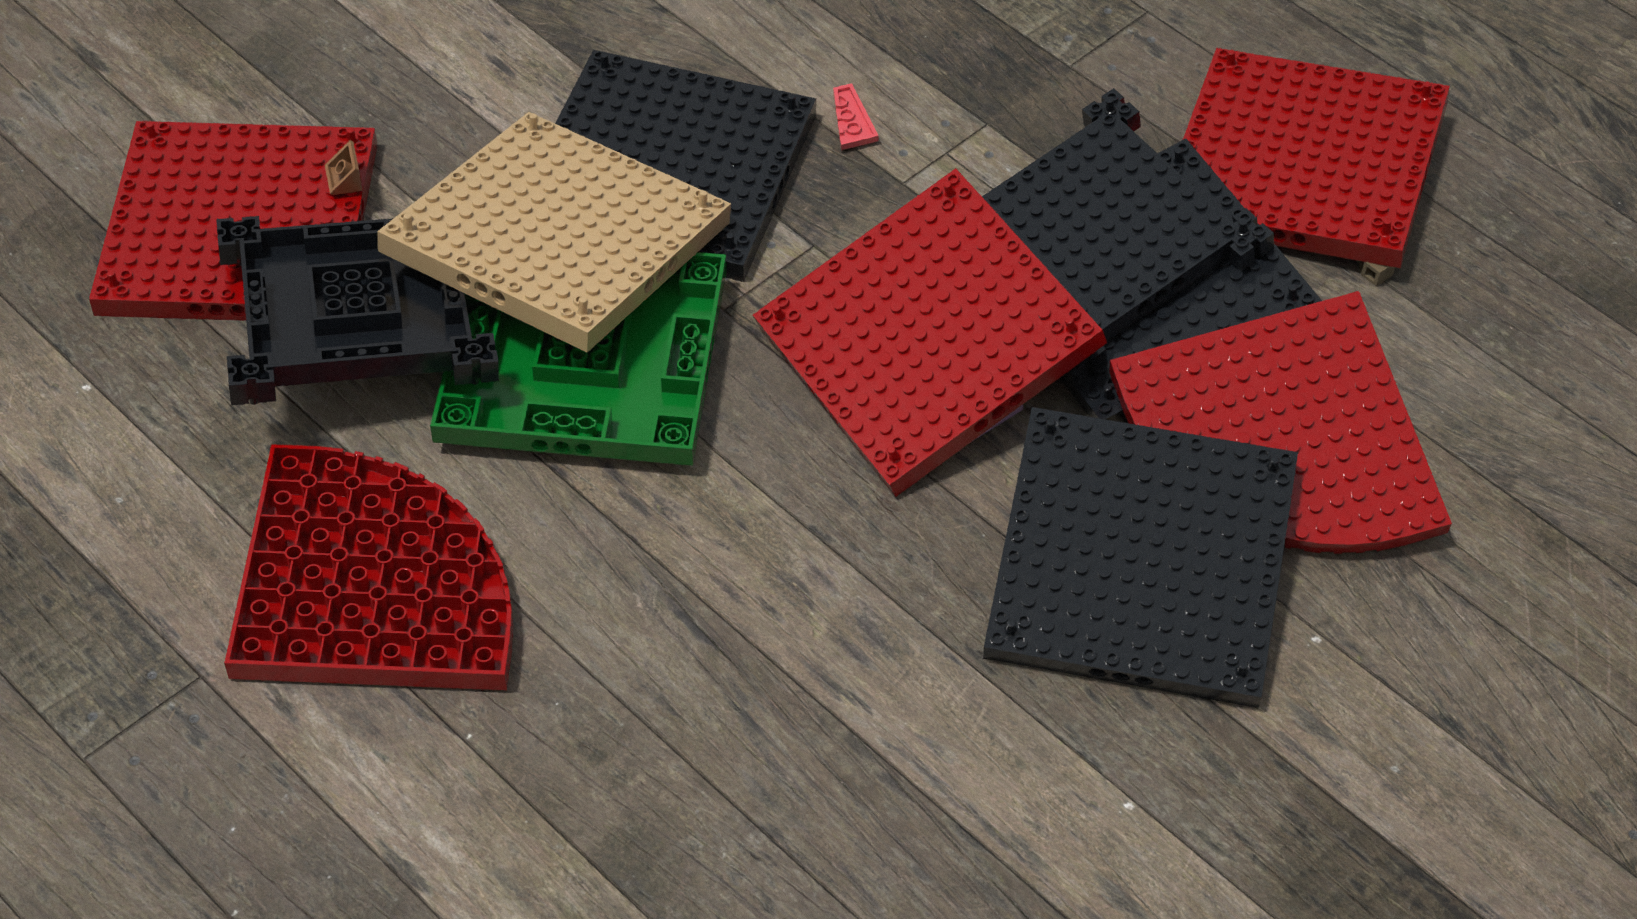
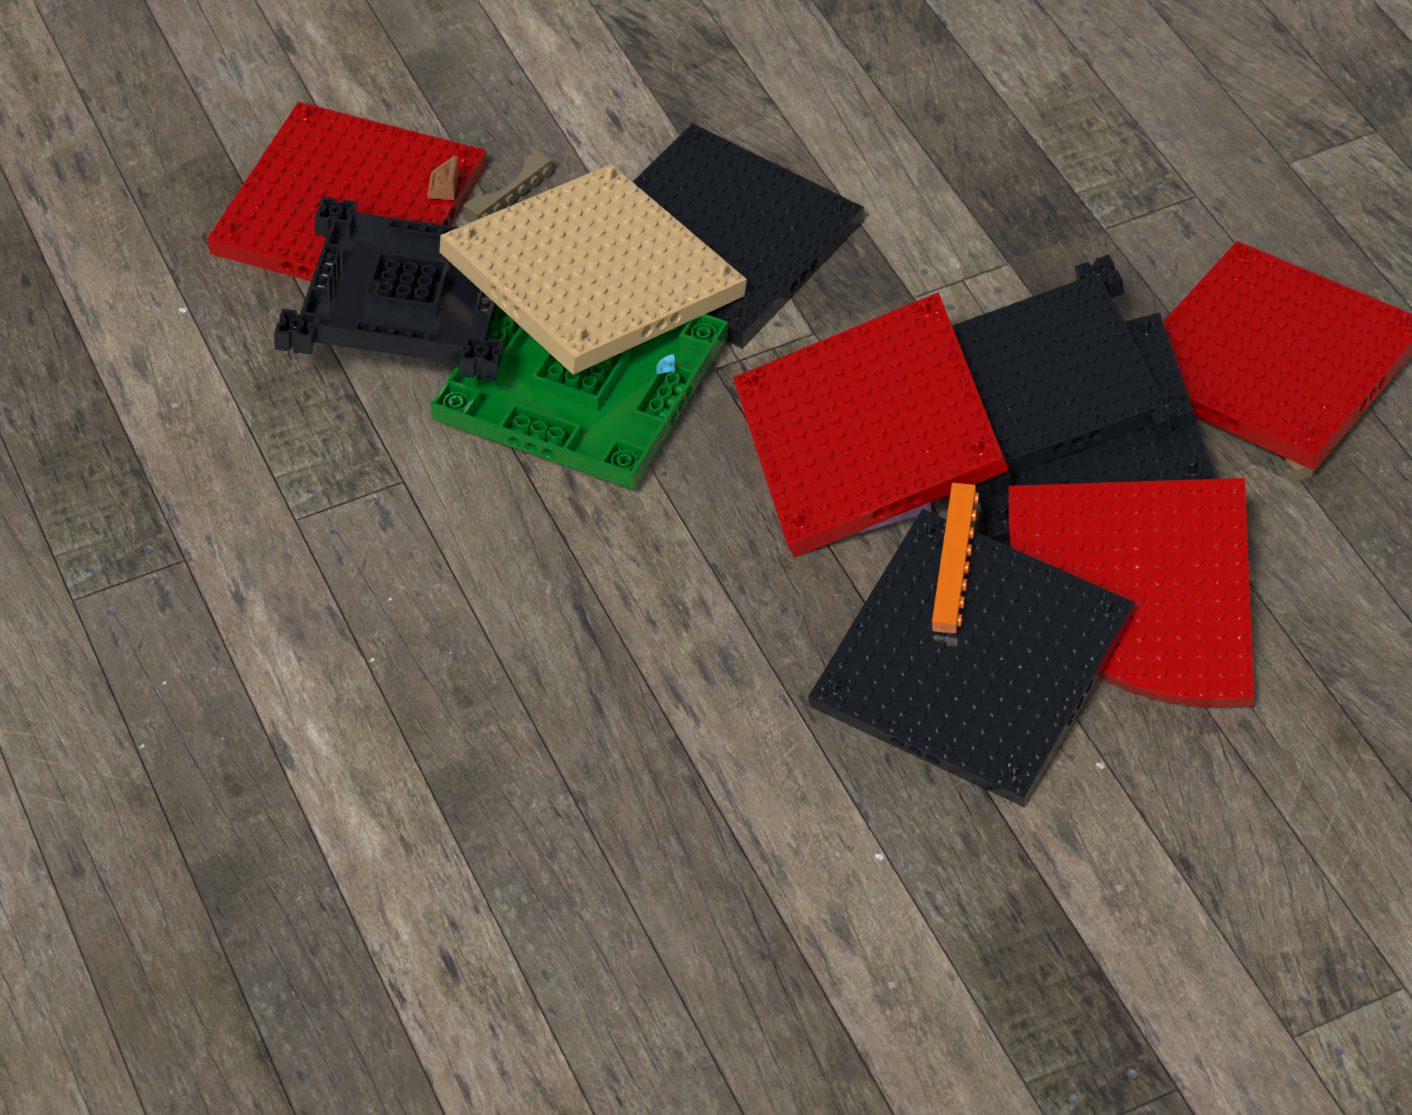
camera: 20 degrees right, 0 degrees up
(367, 580) = (338, 516): red brick -> none
(395, 192) = (535, 169): none -> dark tan arch
(680, 317) = (666, 365): none -> medium azure tile
(852, 119) = (891, 231): coral wing -> none
(1091, 453) = (954, 558): none -> orange brick

